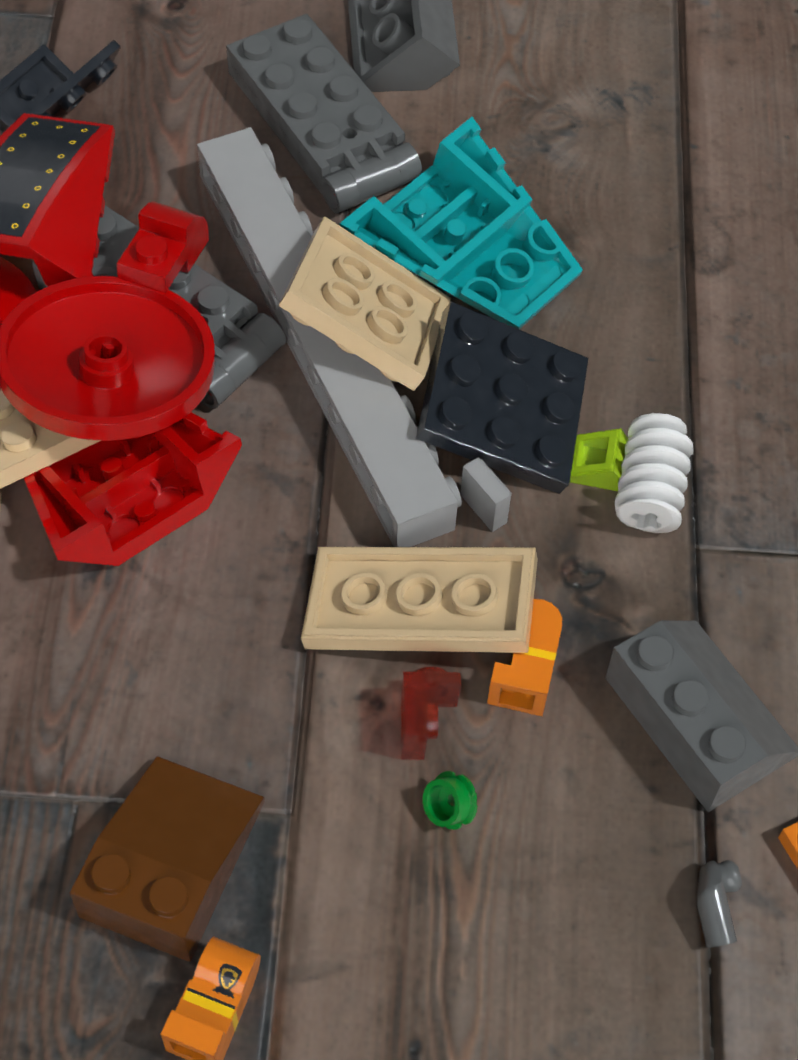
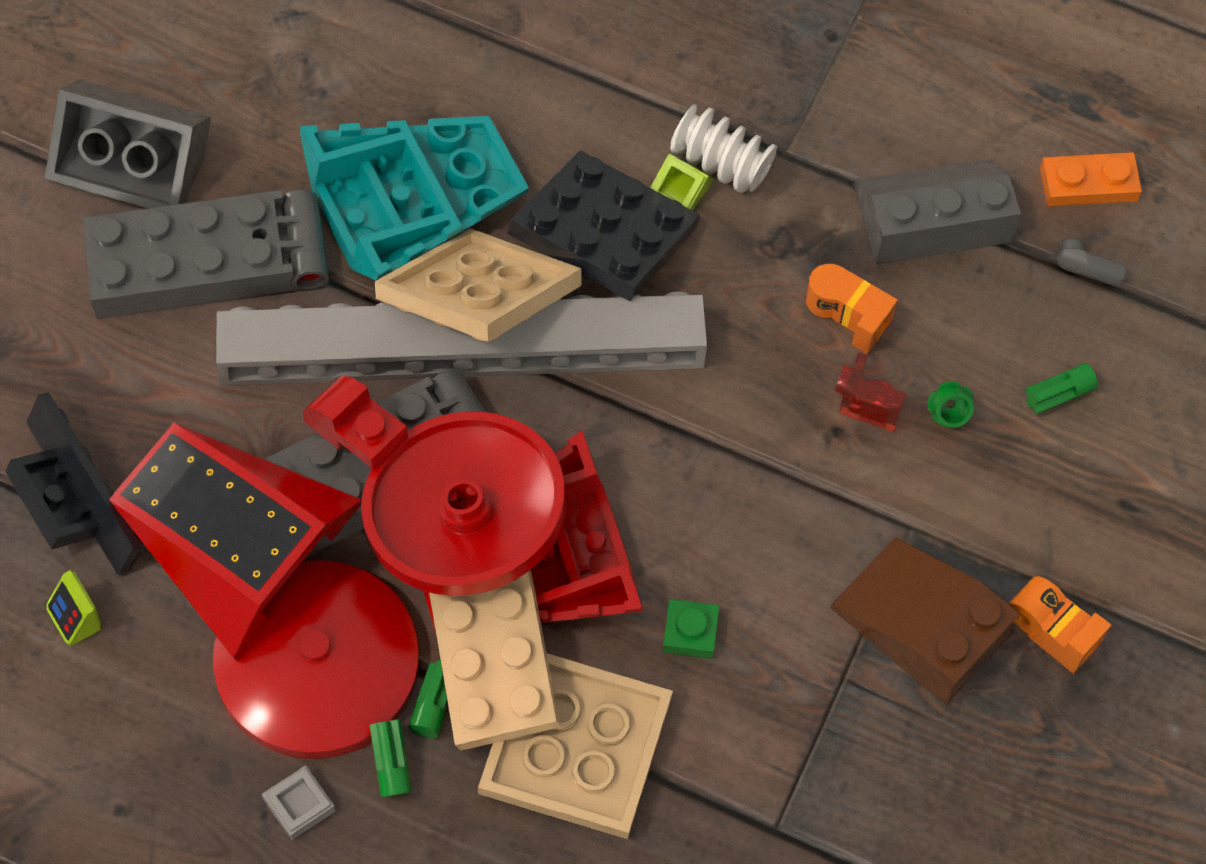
camera: 70 degrees left, 5 degrees up
(79, 630) = (690, 628): none -> green plate
(421, 599) = (773, 359): tan tile -> none
(485, 494) = (690, 275): light grey tile -> none
(531, 919) = (1061, 388): none -> green piece

